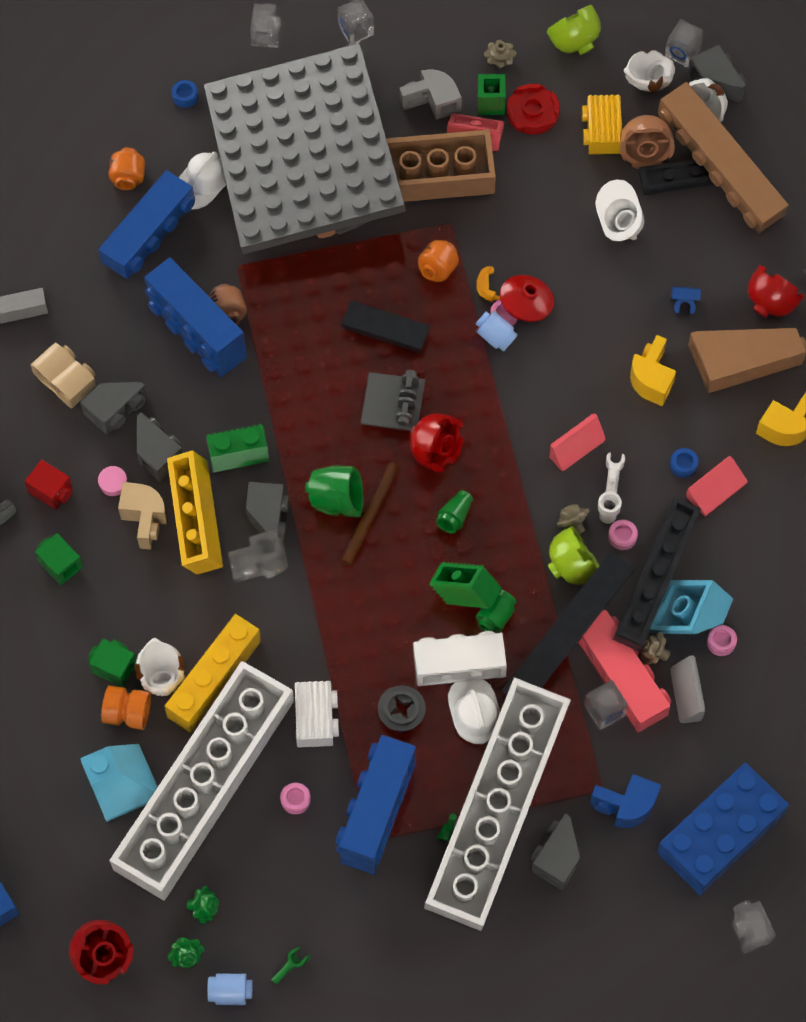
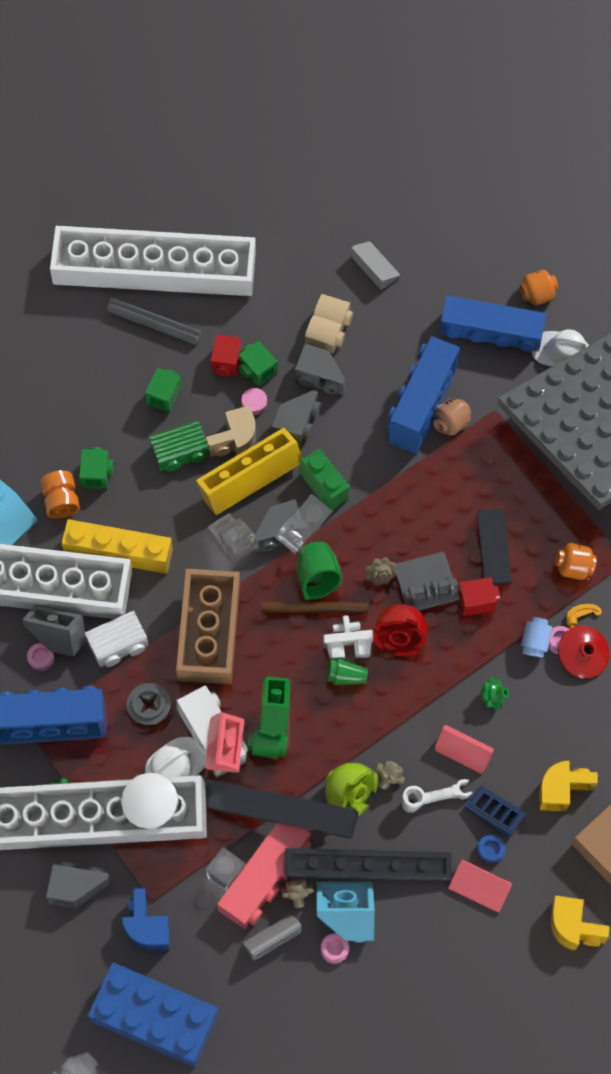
camera: 65 degrees right, 0 degrees up
(74, 458) = (257, 363): none -> green brick
(129, 570) = (179, 446): none -> green brick
(159, 668) = (103, 504): white hair -> none
(278, 766) = (56, 629): none -> dark grey slope
(287, 483) = (303, 524): none -> clear brick
(349, 615) = (208, 626): none -> medium nougat brick
(364, 436) = (381, 571): none -> dark tan plant
(422, 508) = (336, 642): none -> white hips
(433, 360) = (478, 596): none -> red brick
(484, 647) = (224, 743): none -> coral slope
(519, 735) = (149, 800): none -> white dish
(533, 391) = (493, 693): none -> green plant
(622, 534) = (396, 824): bright pink tile -> none
(666, 444) = (509, 809): none -> dark blue slope

